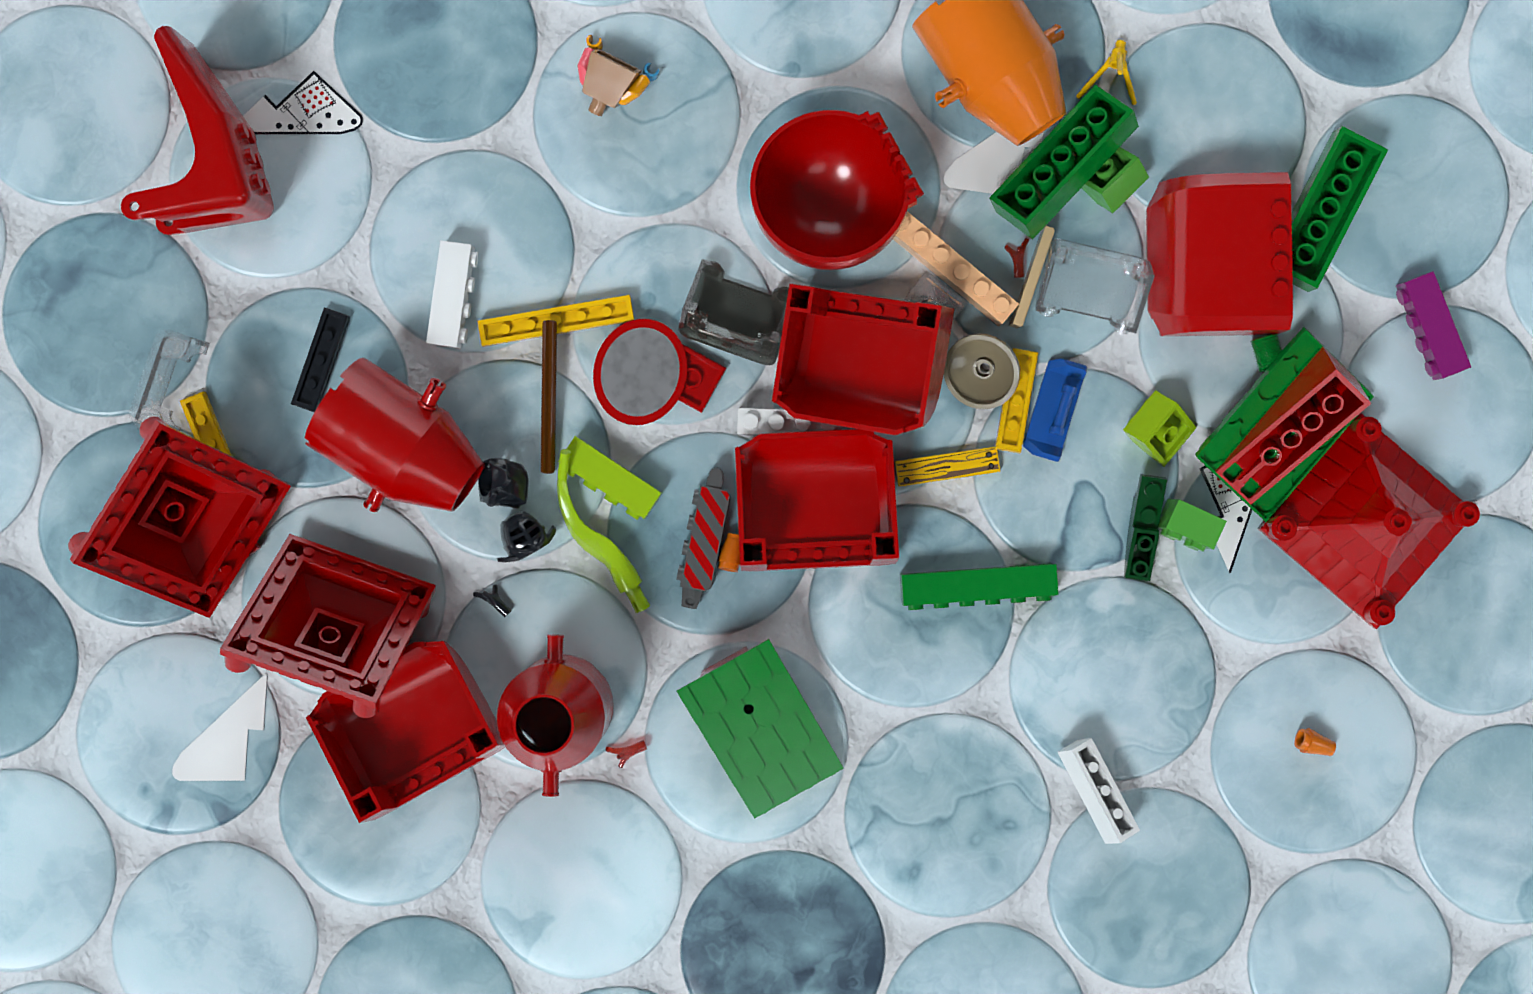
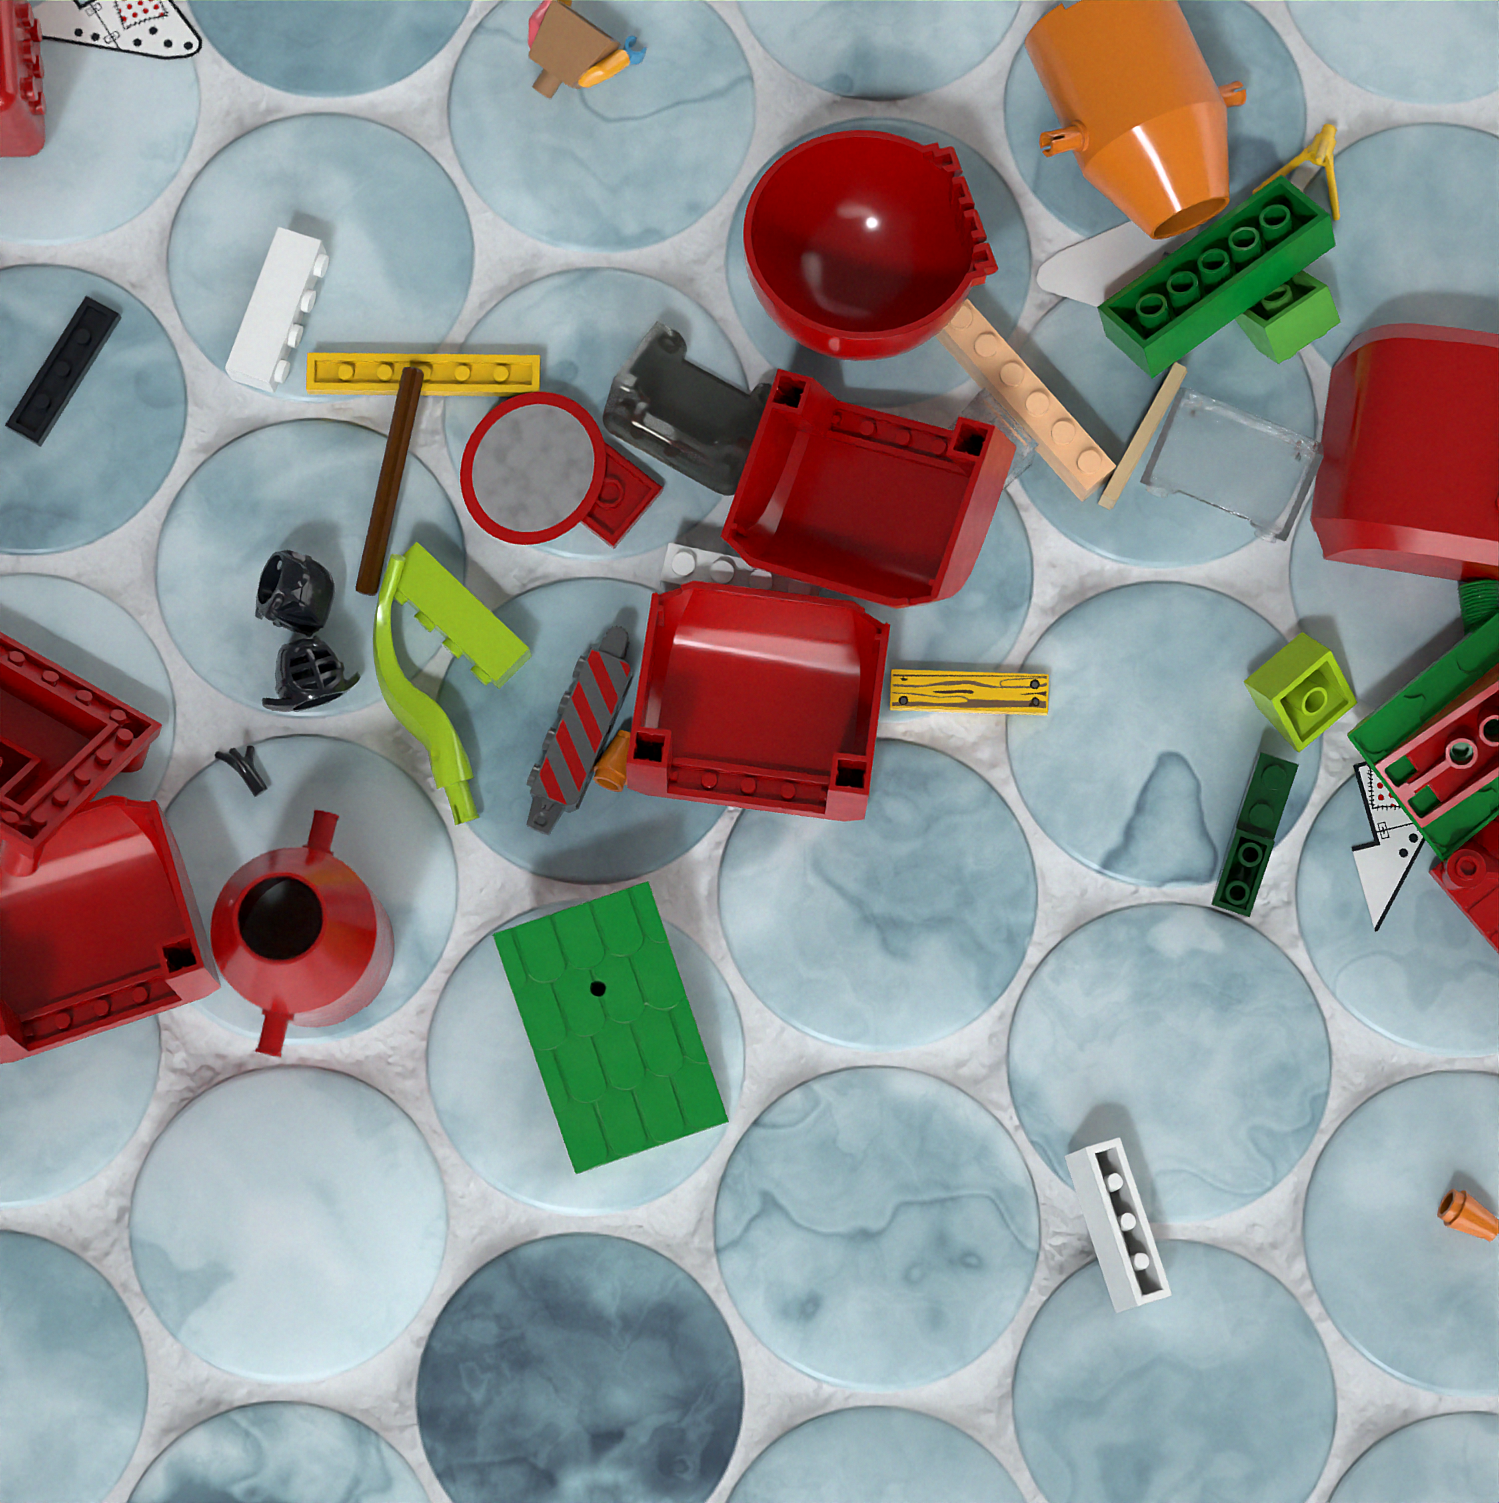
camera: 10 degrees right, 10 degrees down
(394, 439) = (147, 491): red piece -> none
(626, 752) = (400, 1035): clear red bar -> none
(973, 383) = (1021, 562): dark tan dish -> none
(979, 585) = (986, 876): green brick -> none
(1015, 410) = (1089, 612): yellow tile -> none
(1018, 258) = (1127, 407): clear red bar -> none
(1054, 408) = (1146, 635): blue piece -> none
(1191, 524) = (1323, 839): bright green brick -> none

